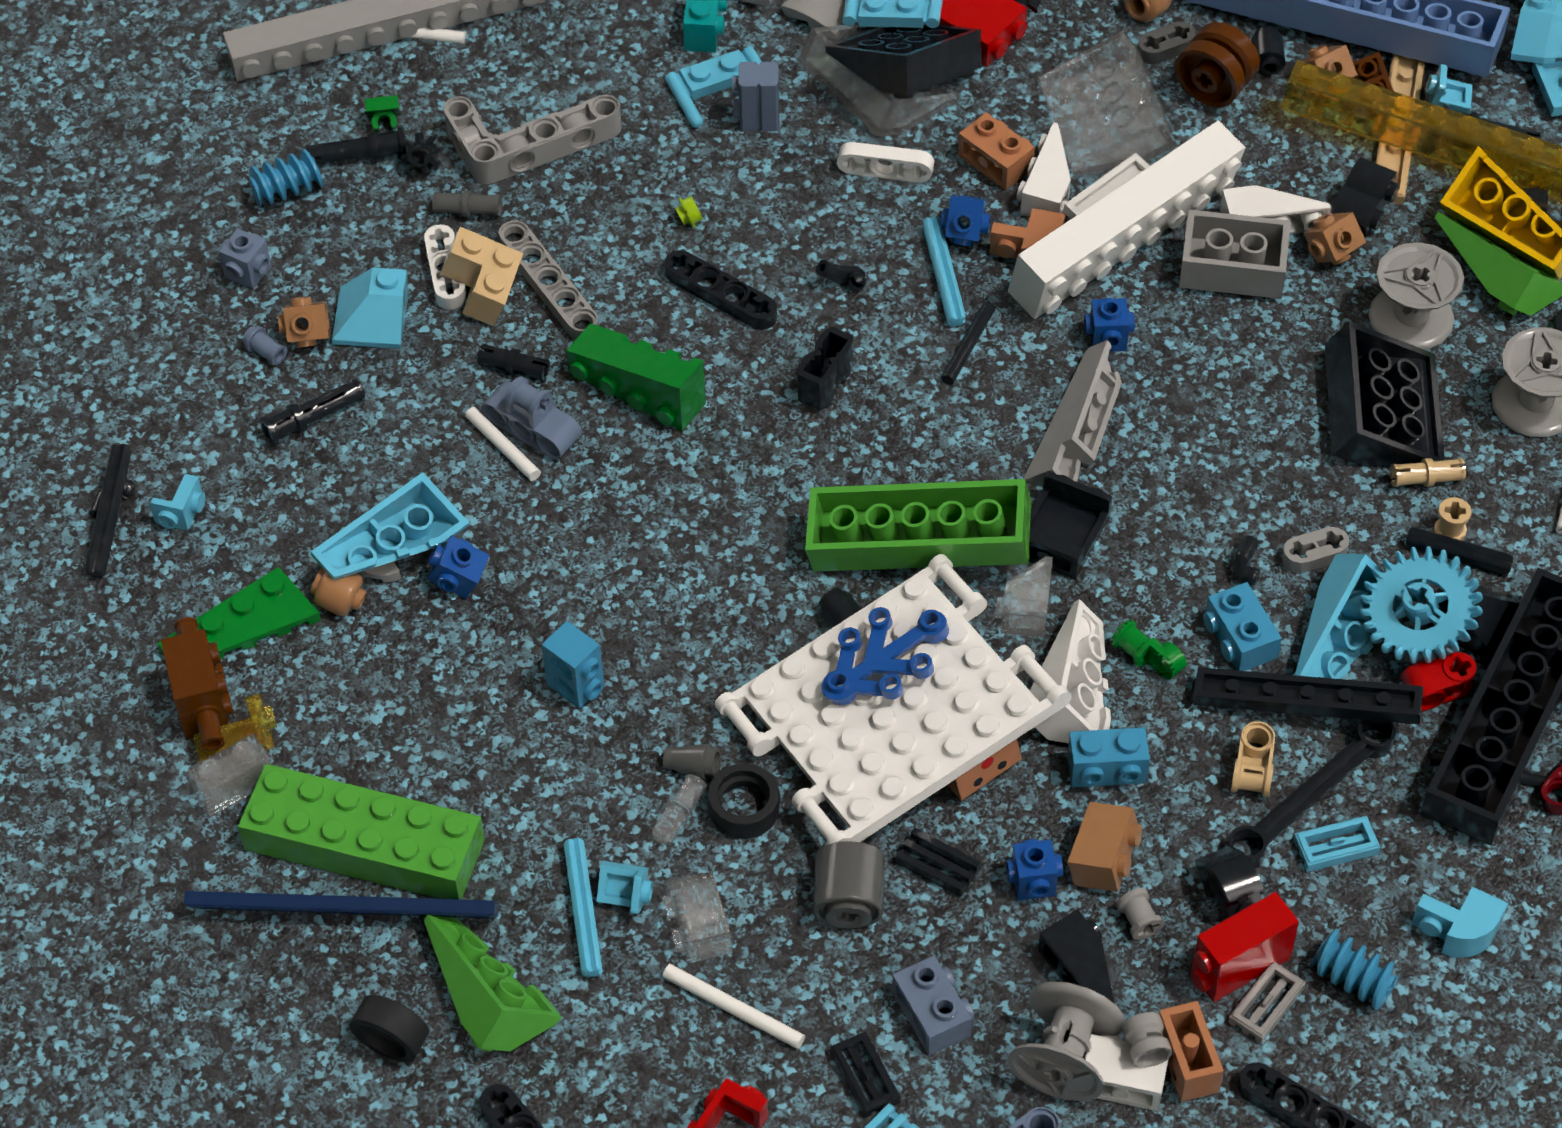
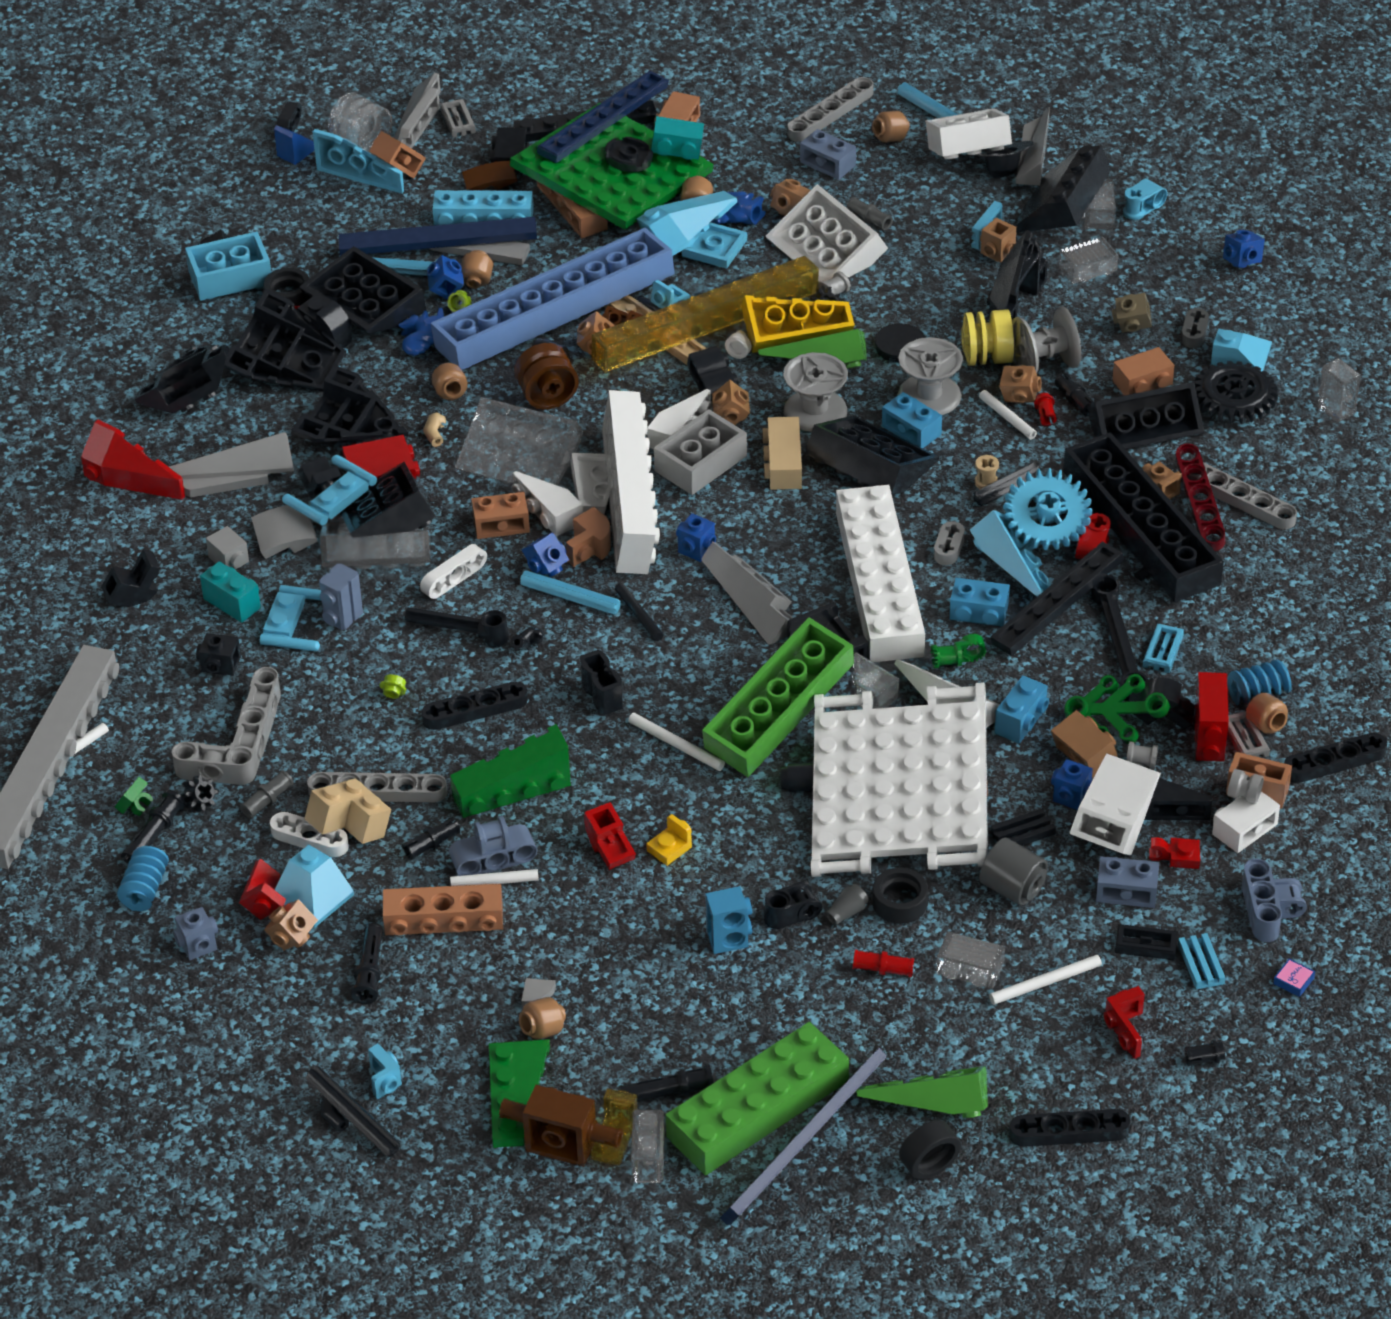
camera: 55 degrees left, 10 degrees down
(258, 341) = (282, 962): sand blue pin -> none
(330, 274) = (260, 892): none -> red bracket
(340, 756) = (682, 1082): none -> black pin
(396, 528) = (529, 956): medium azure wedge -> none
(421, 427) = (442, 909): none -> nougat brick
(457, 566) = (586, 944): blue brick -> none
(583, 908) = (909, 1016): medium azure axle -> none
(611, 50) = (219, 654): none -> black brick
(622, 499) = (607, 835): none -> red brick
(624, 885) = (917, 983): medium azure bracket -> none
(636, 838) = (883, 963): none -> red pin
(658, 714) = (790, 904): none -> black piece
(663, 558) = (672, 841): none -> yellow bracket
(678, 809) = (876, 930): clear axle -> none
(811, 468) = (676, 741): none -> white bar
(829, 232) = (491, 625): none -> black axle
(882, 660) = (872, 761): blue plant -> none
(1012, 927) = (1115, 804): none -> white slope
(1021, 1028) = (1180, 852): none -> red plate
(1058, 1063) = (1225, 839): light grey piece -> none
(1072, 26) = (431, 428): none -> tan arm
(1161, 814) = (1113, 705): none -> green plant
(1165, 42) = (486, 385): dark grey beam -> none
(1201, 512) = (880, 573): none -> white brick
(1242, 558) = (930, 577): black arm -> none
(1254, 765) = (1078, 648): tan piece -> none
(1307, 325) = (782, 453): none -> tan brick
(1312, 1003) = (1267, 713): none -> medium nougat head
(1427, 472) = (940, 464): tan pin -> none
(1434, 191) = (738, 345): none -> white tile
(1464, 930) = (1265, 623): medium azure brick -> none
(1469, 408) = (911, 420): none -> dark azure brick

